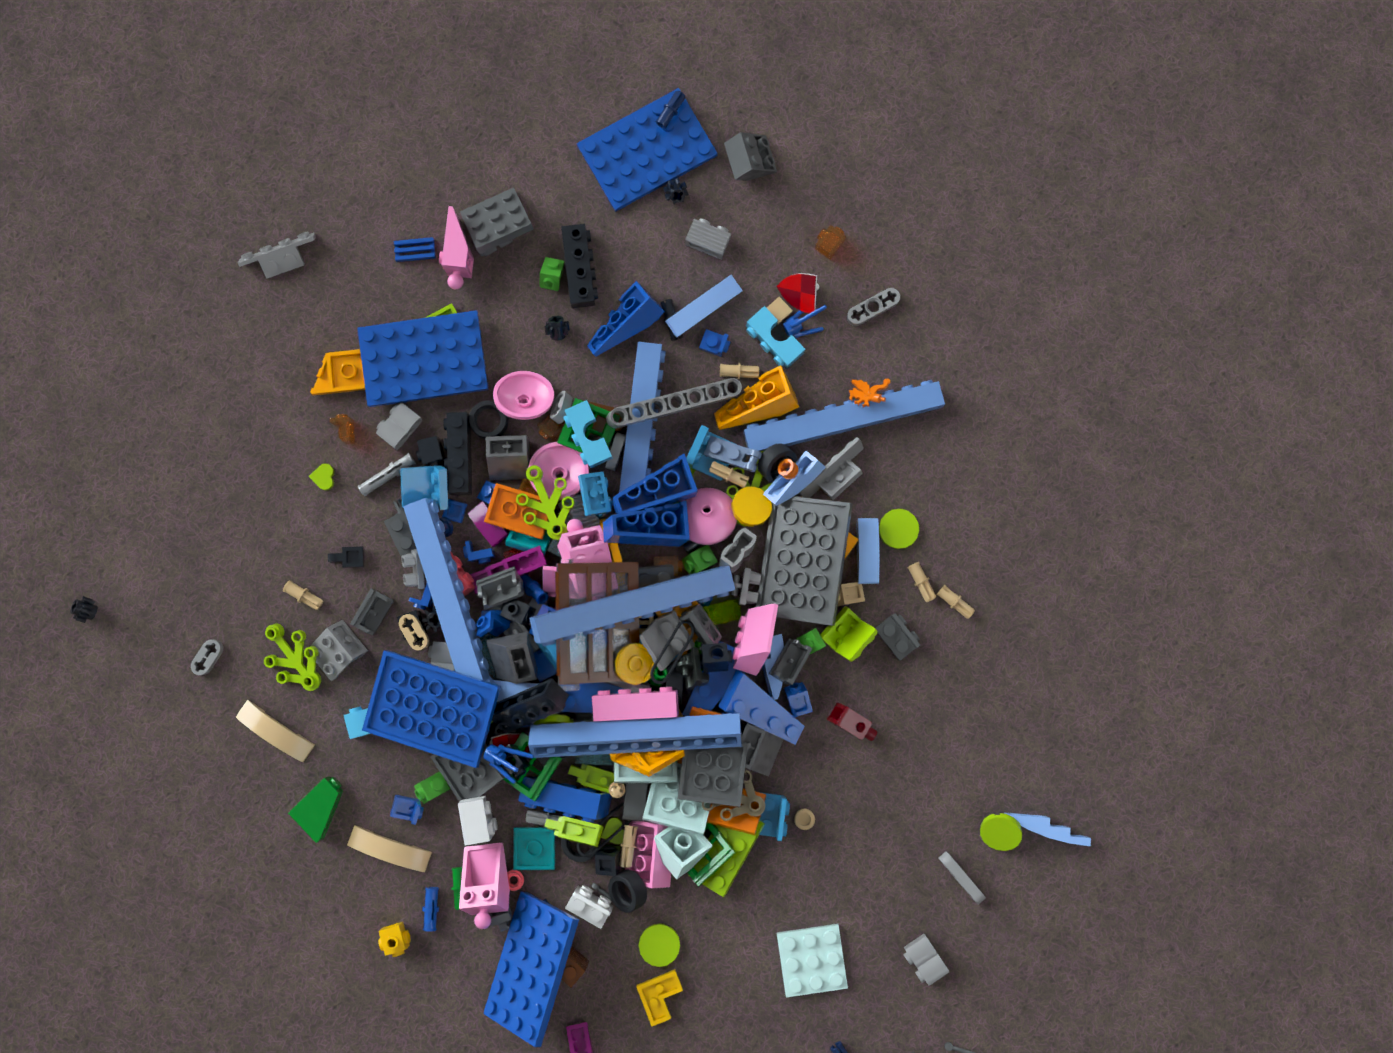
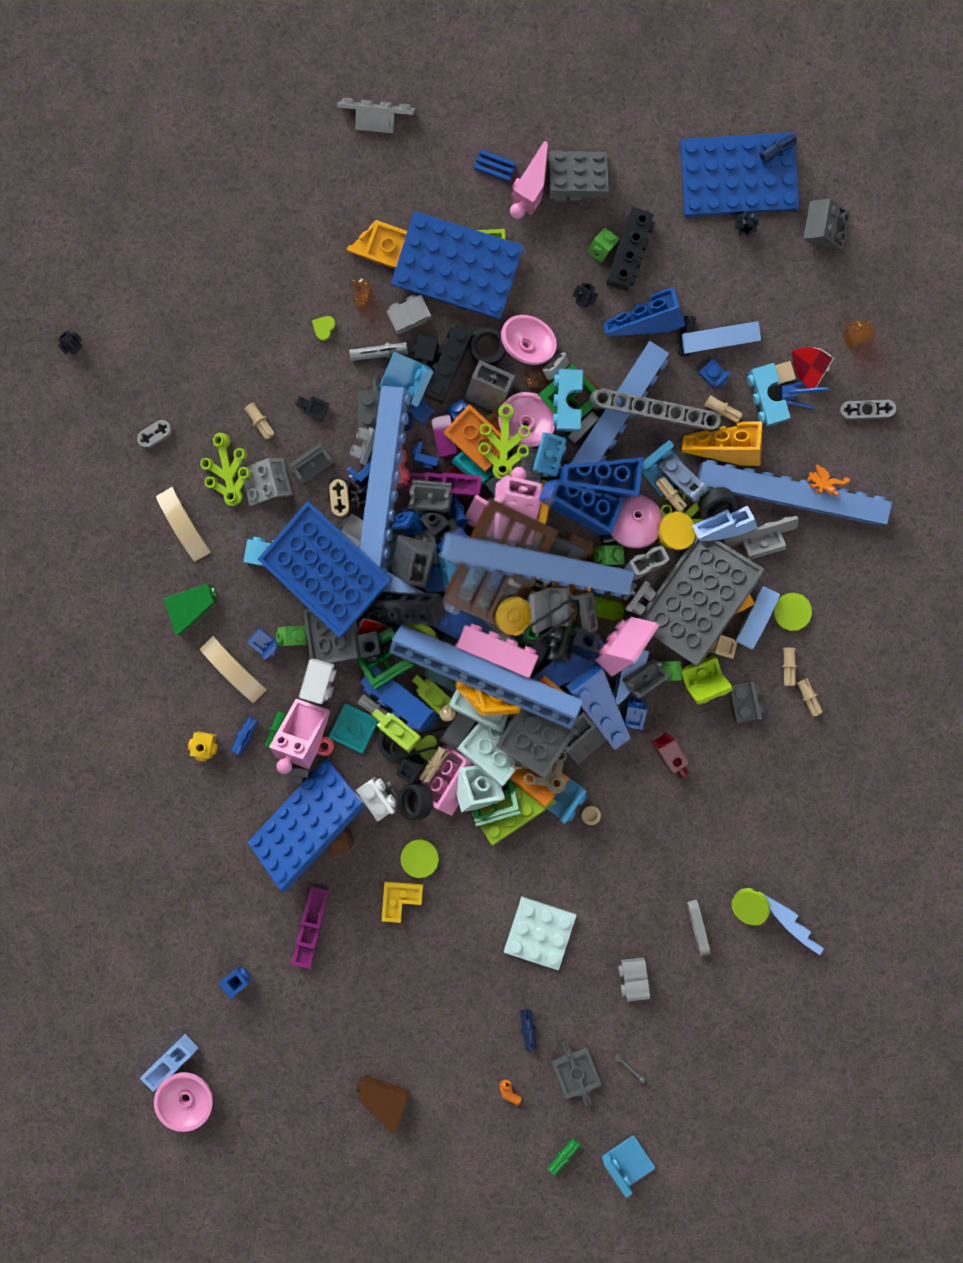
camera: 25 degrees right, 5 degrees up
(496, 757) = (361, 636): blue plant -> none
(708, 238) = (754, 279): light grey brick -> none
(792, 471) = (727, 518): orange bush -> none

